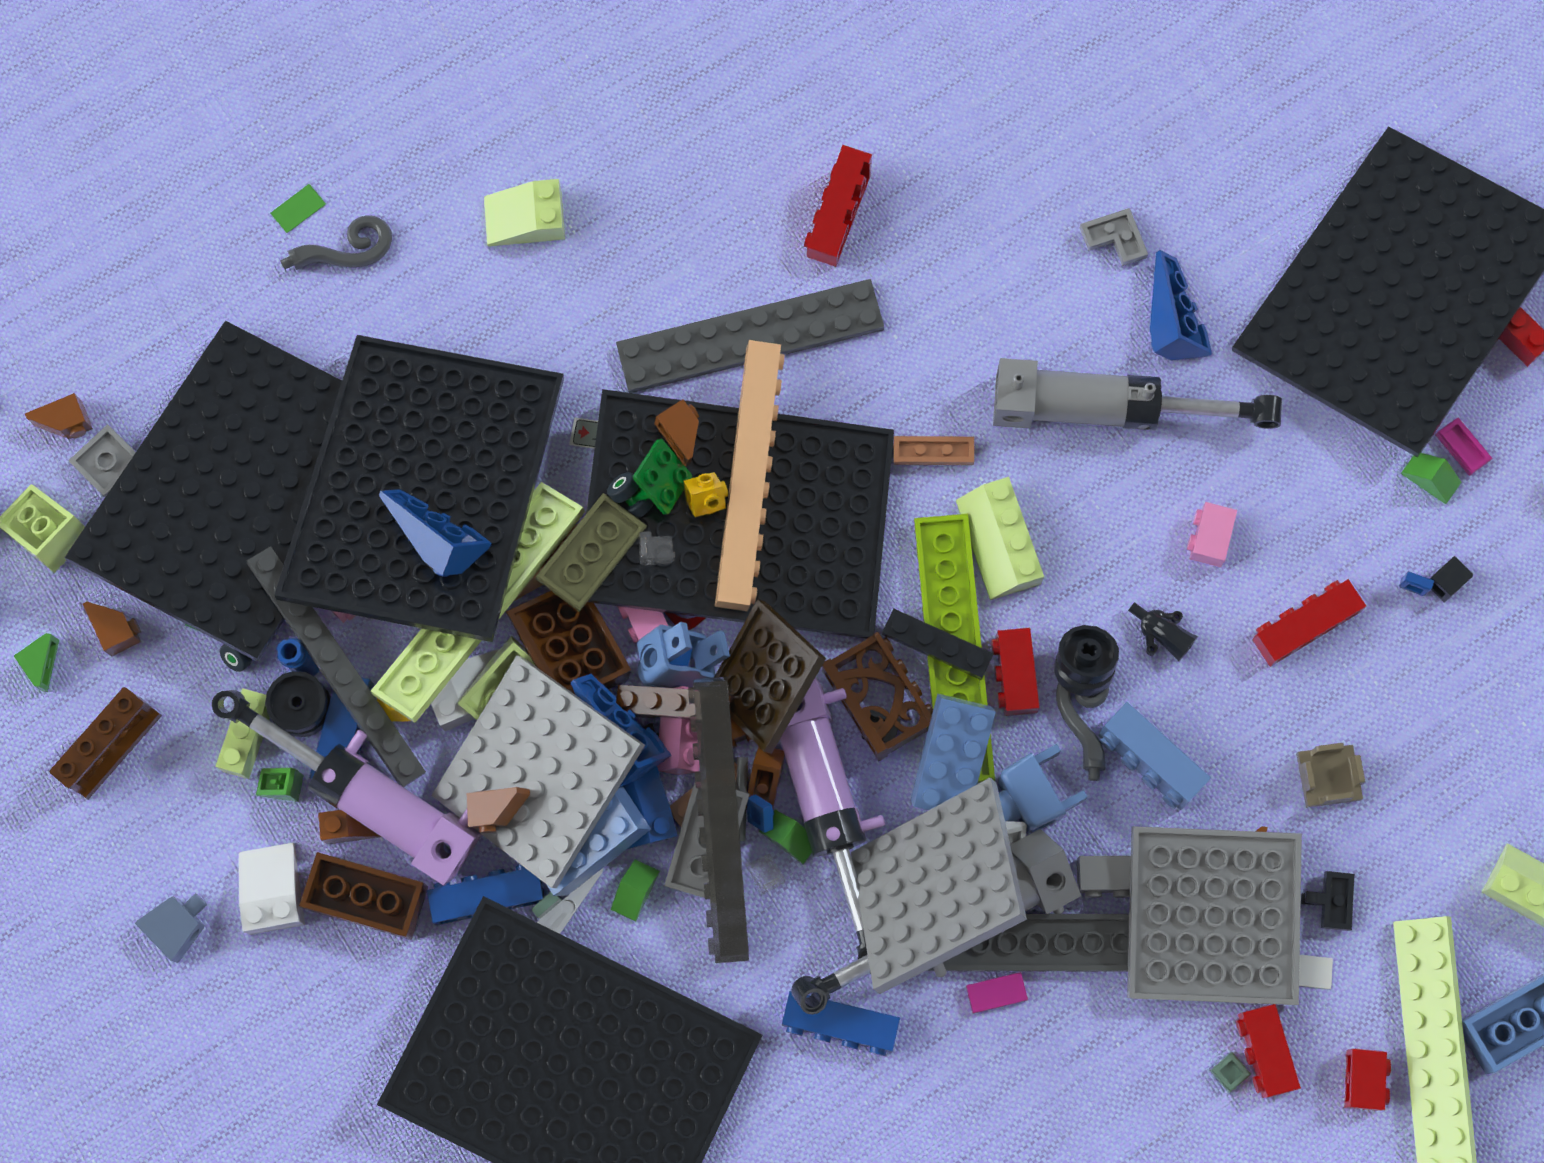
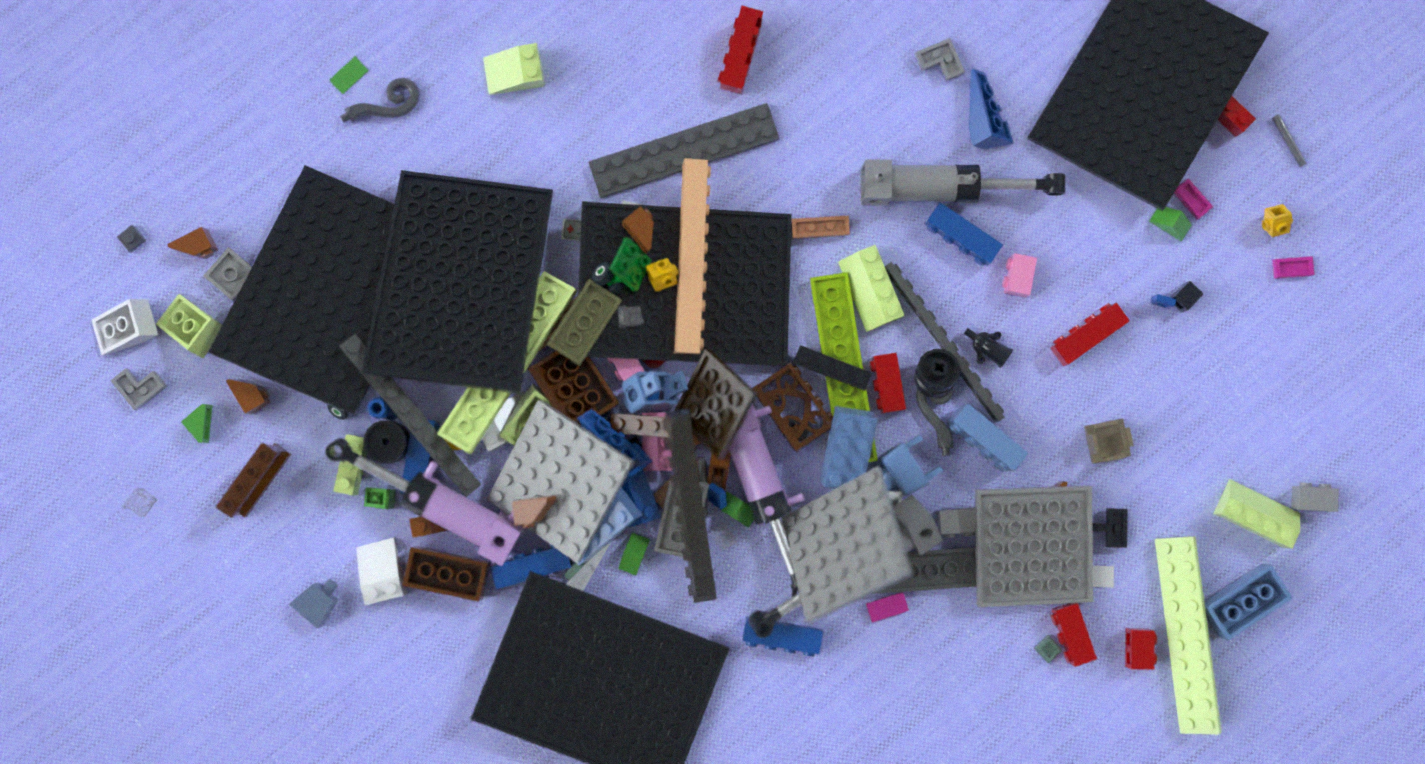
camera: 10 degrees left, 10 degrees up
(432, 534) = (473, 322): blue wedge -> none
(1093, 609) = (939, 335): none -> dark grey plate
(1134, 473) = (963, 234): none -> blue brick

